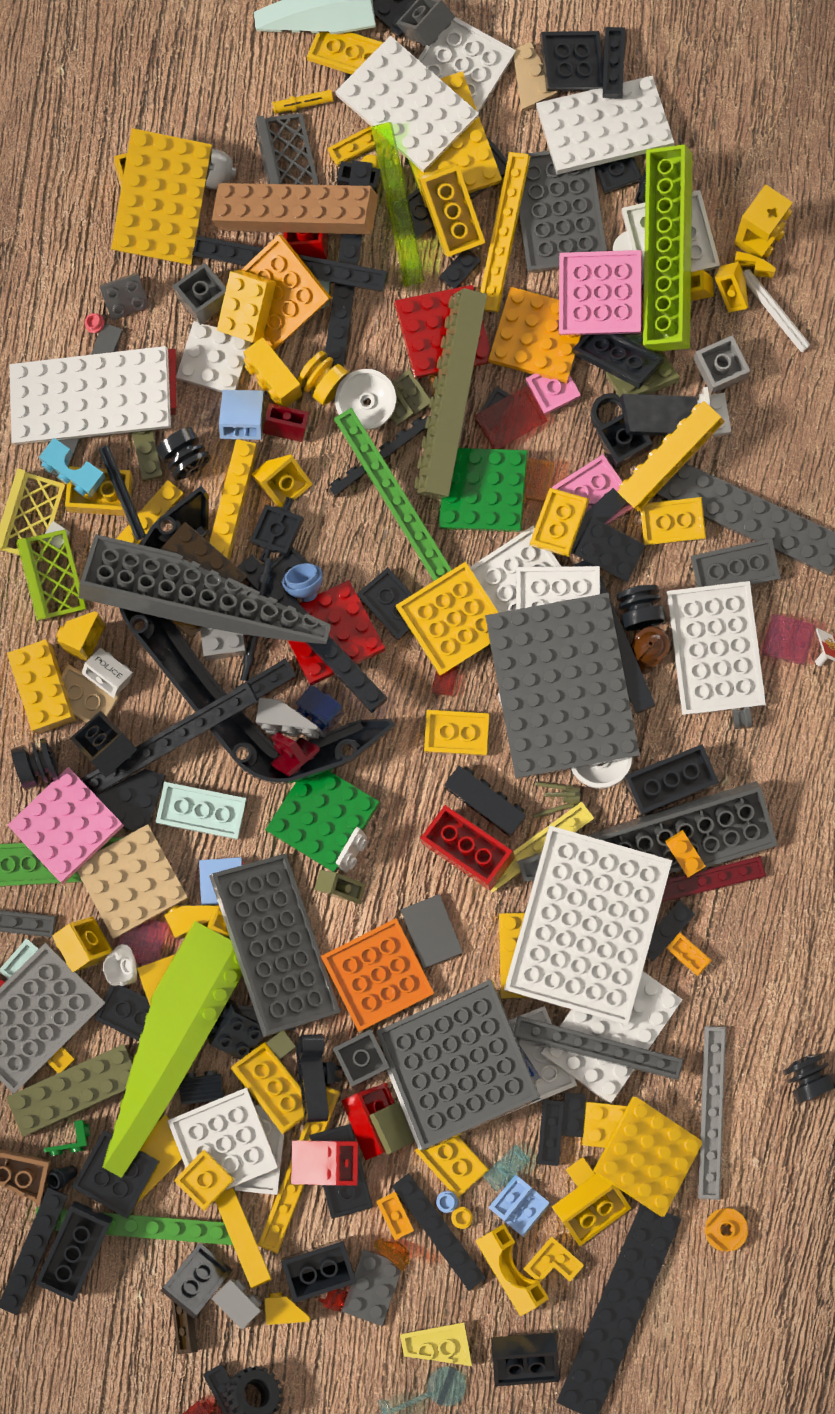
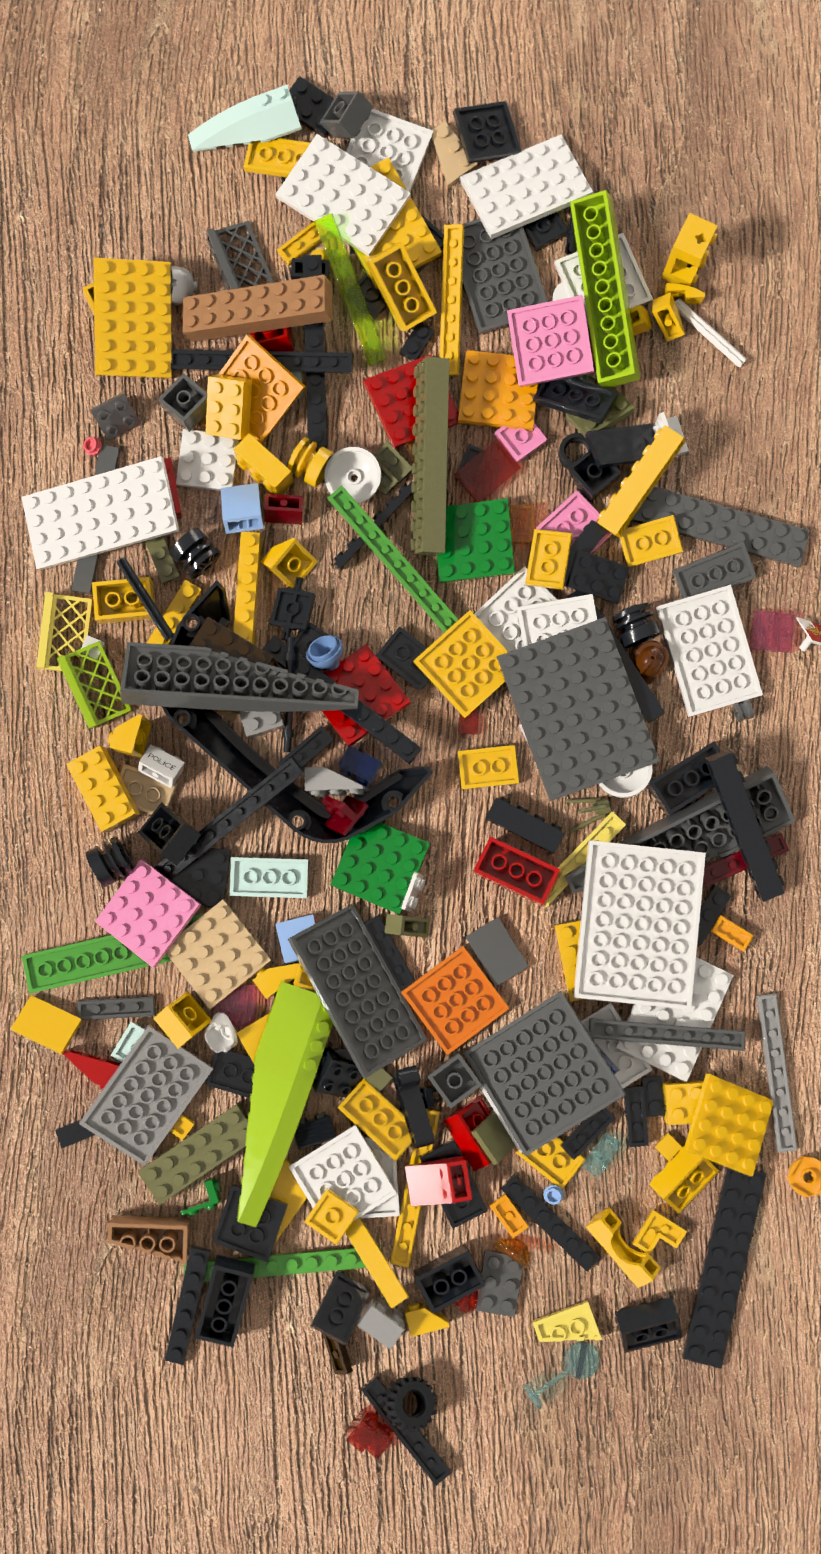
camera: 10 degrees left, 5 degrees up
(55, 459) = (109, 592): medium azure arch -> none
(61, 1176) = (200, 1234): black cone -> none
(278, 106) = (267, 203): yellow pin -> none
(316, 912) = (389, 952): none -> black tile
(462, 1217) = (569, 1206): yellow plate -> none
(495, 1139) = (586, 1133): none -> black plate
(519, 1205) = (619, 1186): light blue slope -> none
(613, 62) = (524, 127): black plate -> none
(685, 853) = (714, 843): light orange plate -> none
(719, 838) = (744, 825): none -> black brick
(721, 364) = (670, 389): light grey brick -> none

